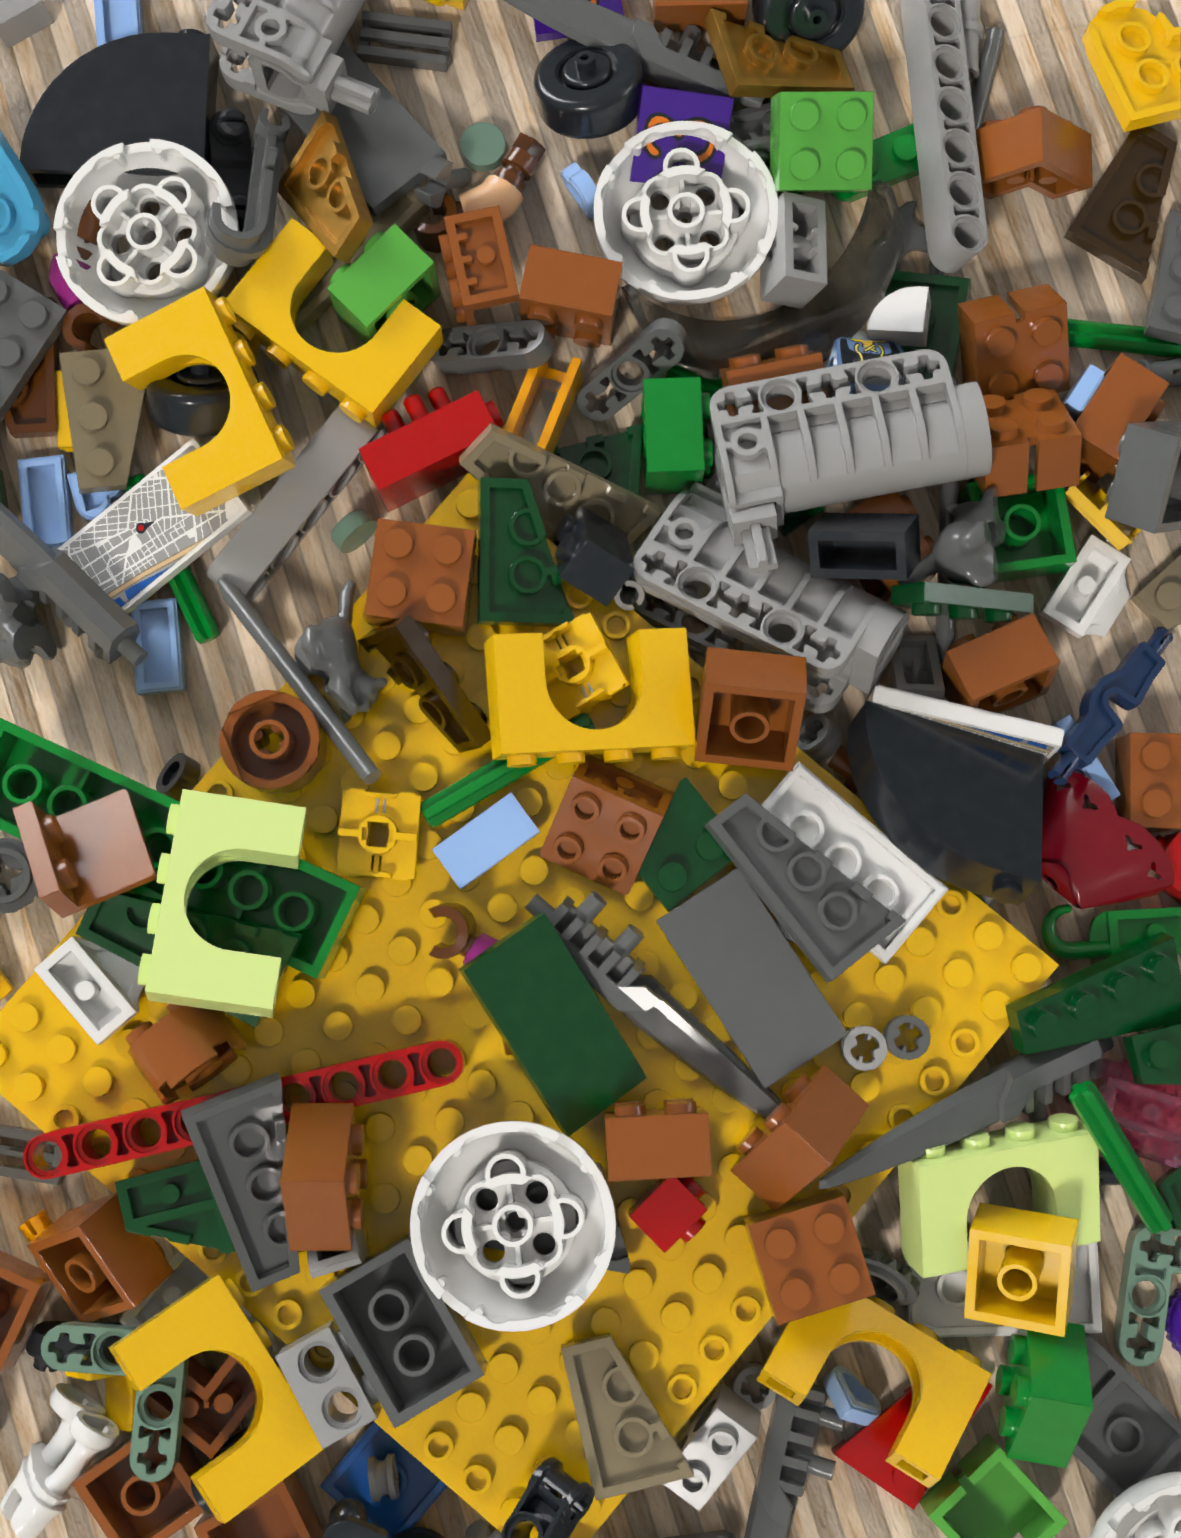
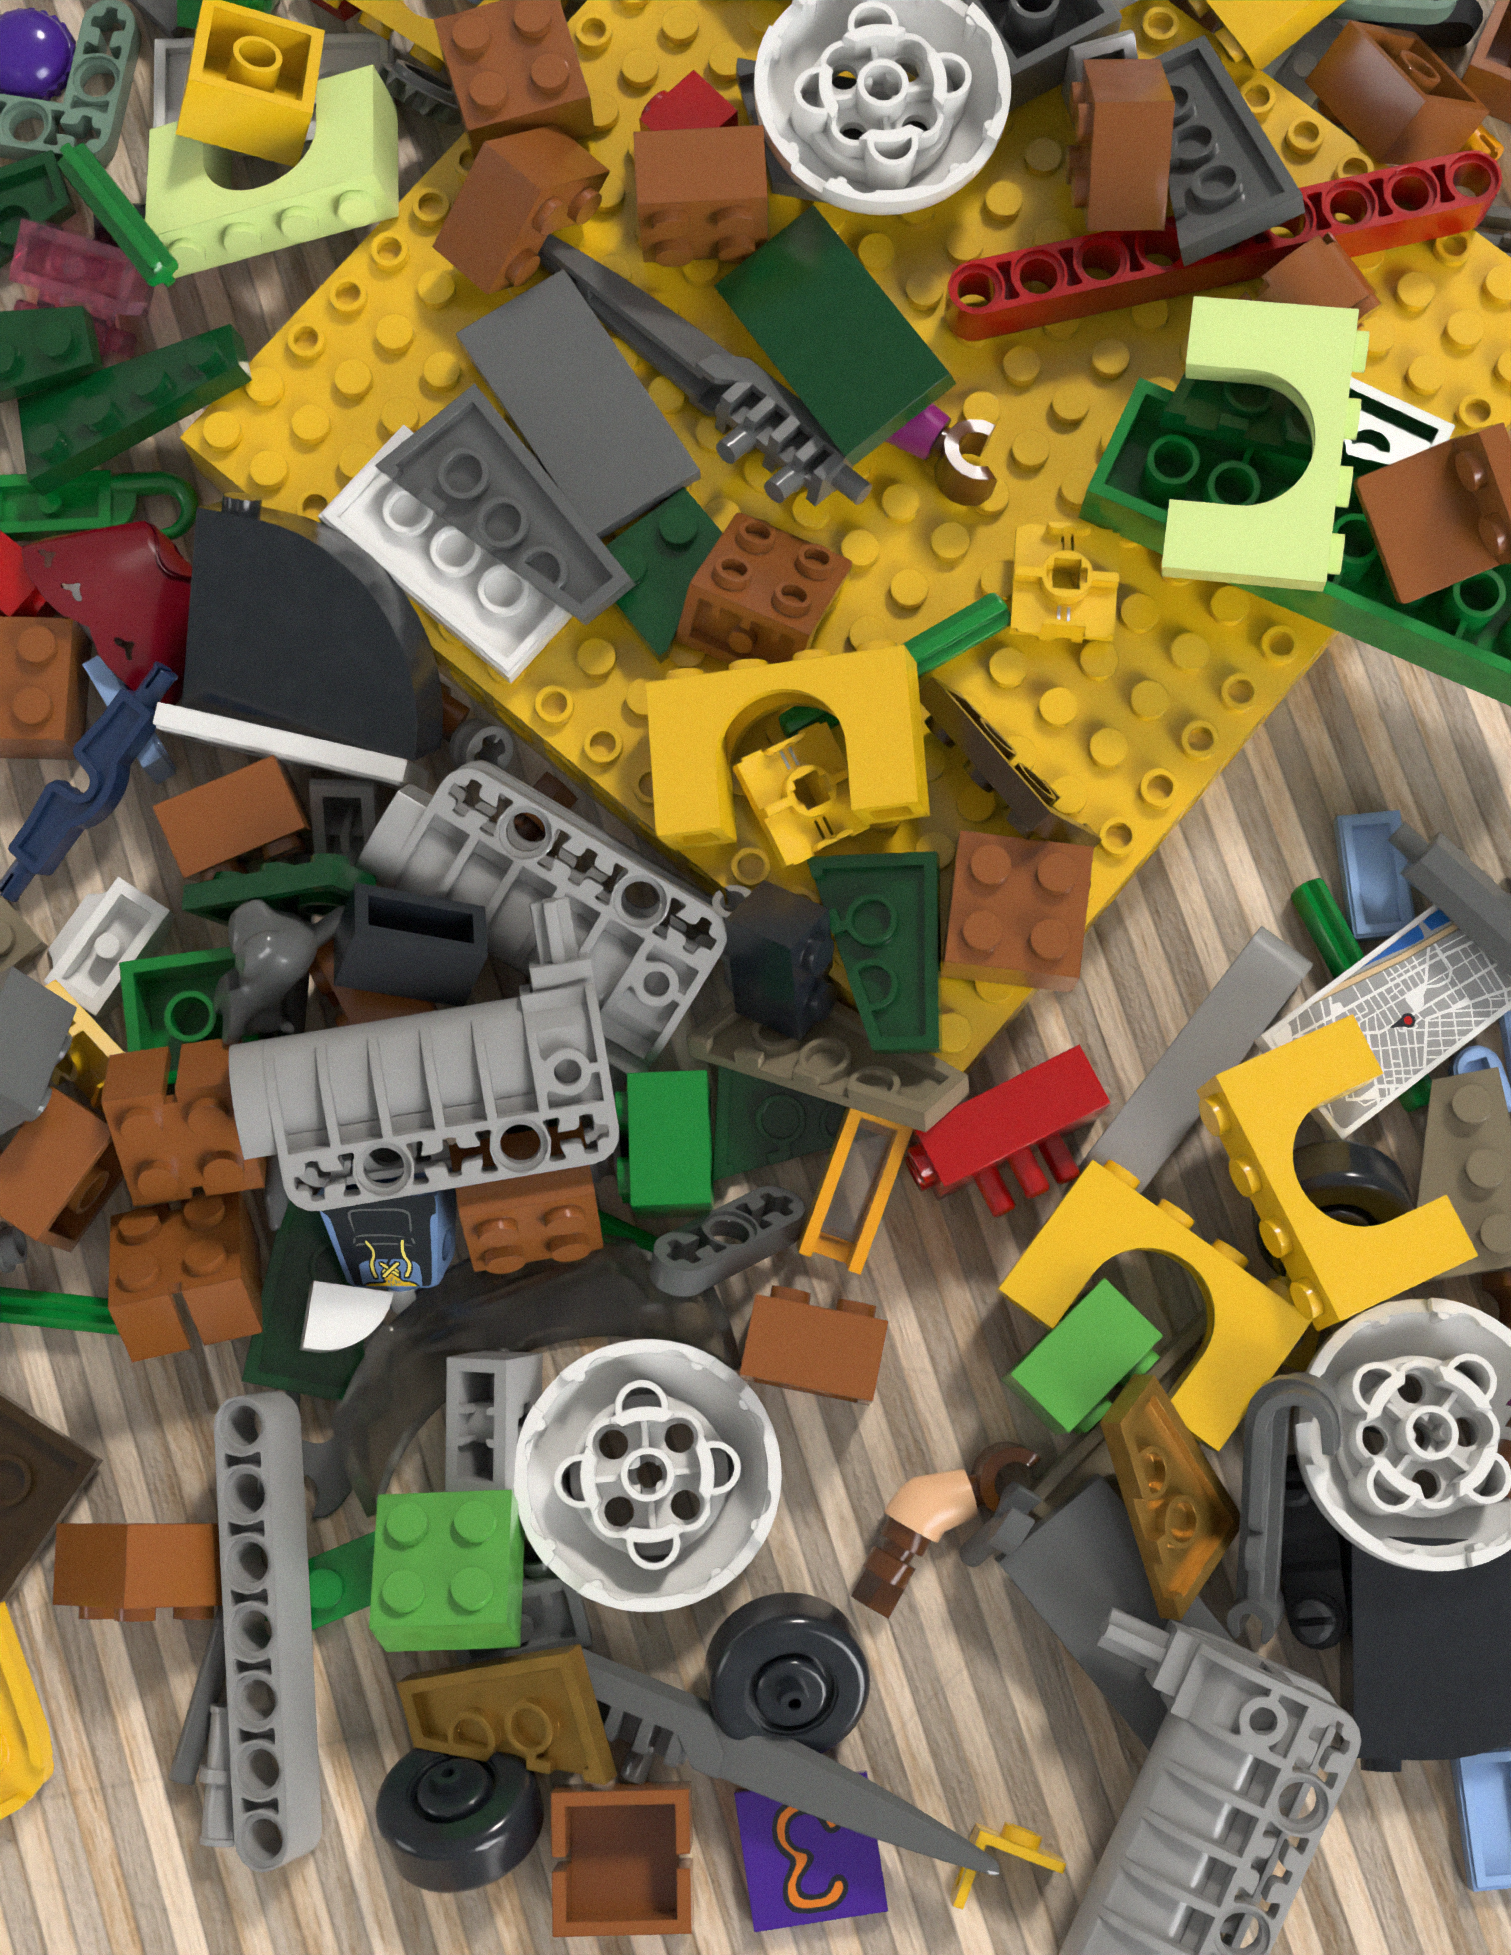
camera: 175 degrees left, 5 degrees down
(93, 986) = (1432, 376): white slope -> none
(174, 1206) = (1315, 134): dark green wing -> none
(178, 774) = (1333, 694): black tile -> none
(248, 732) = (1222, 656): dark orange brick -> none
(299, 682) = (1182, 785): dark grey piece -> none
(332, 654) = (1135, 810): dark grey animal -> none
(353, 530) = (1114, 1028): sand green tile -> none
(375, 20) = (1119, 1774): dark grey tile -> none
(477, 262) = (945, 1384): dark orange bracket -> none
(483, 146) = (943, 1598): sand green tile -> none
(486, 841) = (923, 578): light blue tile -> none
(520, 346) = (906, 1261): dark grey beam -> none
(580, 187) = (801, 1529): light blue tile -> none
(667, 105) = (665, 1637): dark purple tile -> none
(750, 708) = (570, 725): dark orange brick -> none
(877, 1054) = (416, 319): light grey bush -> none
(920, 1042) = (389, 319): dark grey bush -> none
(1006, 1090) = (272, 279): dark grey piece -> none
(1082, 390) = (99, 1196): light blue tile -> none

